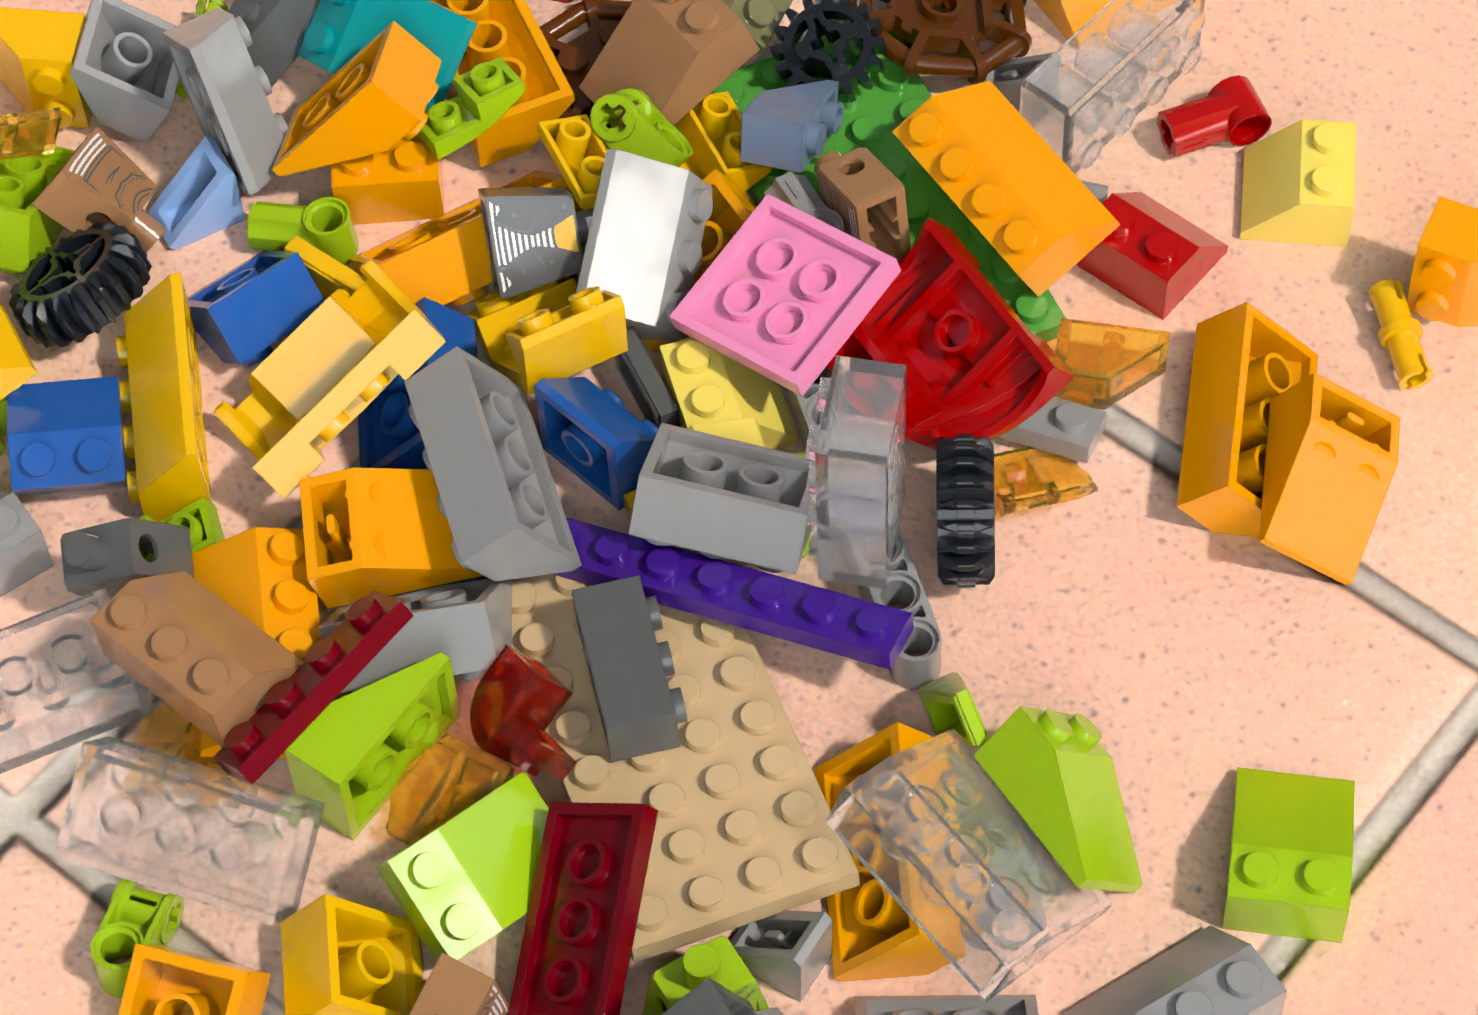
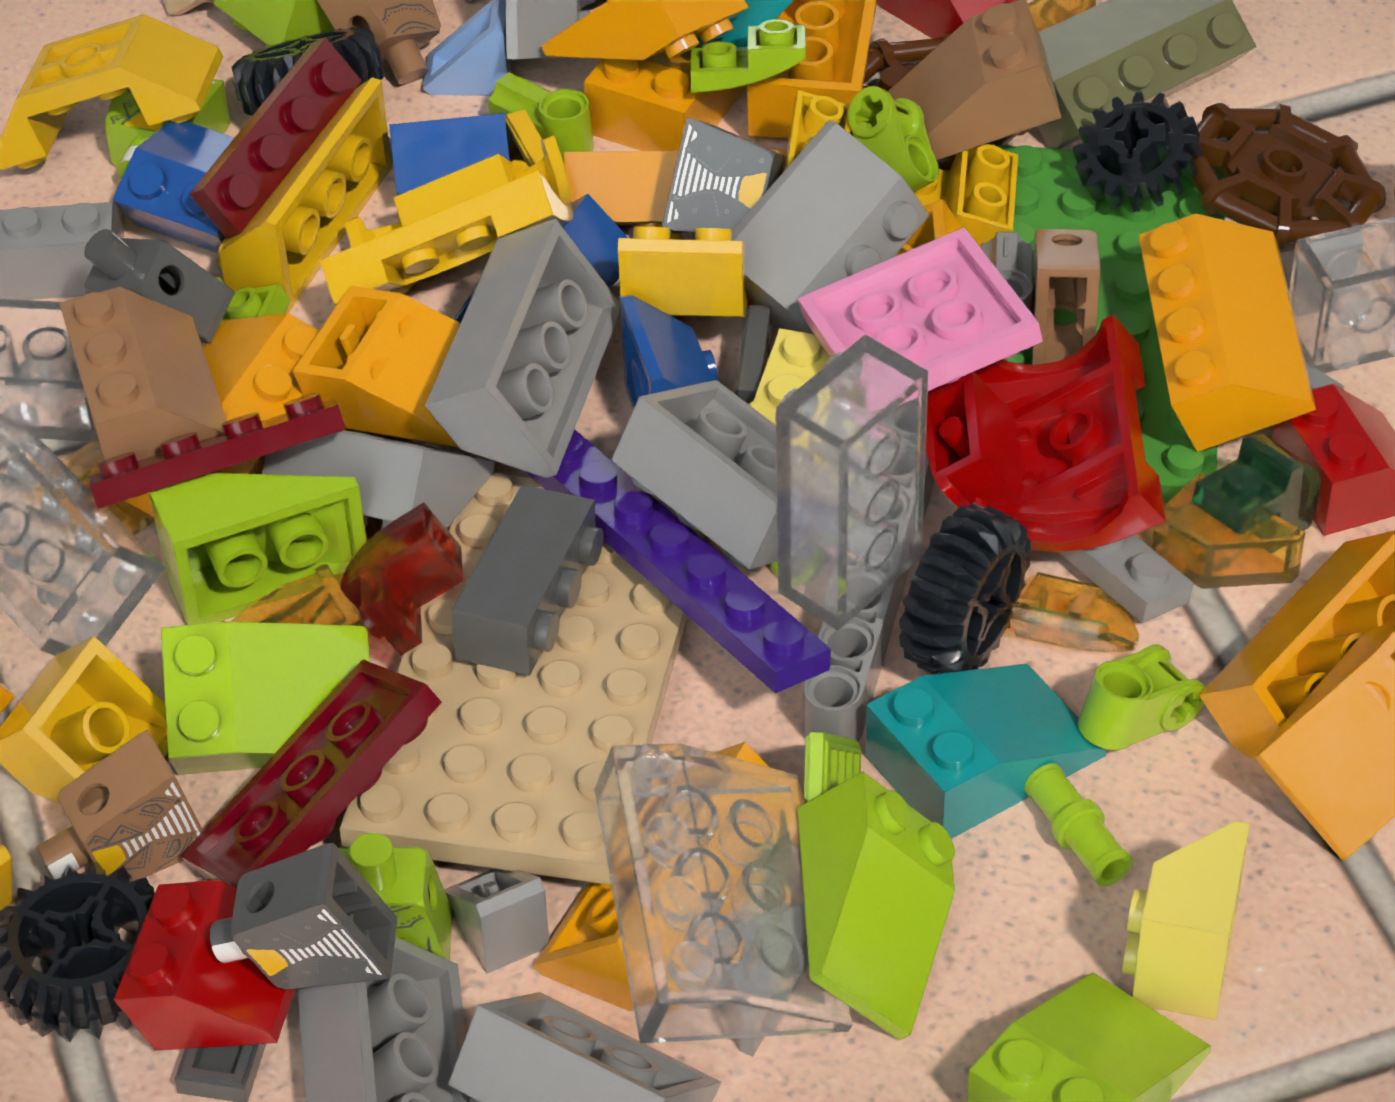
camera: 30 degrees right, 10 degrees down
(126, 368) = (275, 138): none -> dark red plate
(790, 125) = (1046, 192): sand blue slope -> none
(1036, 627) = (971, 740): none -> teal slope
(1114, 311) = (1260, 485): none -> clear green brick
(1131, 532) = (1138, 699): none -> lime piece
(1153, 655) = (1078, 824): none -> lime pin
(1301, 700) = (1186, 924): none -> light yellow slope

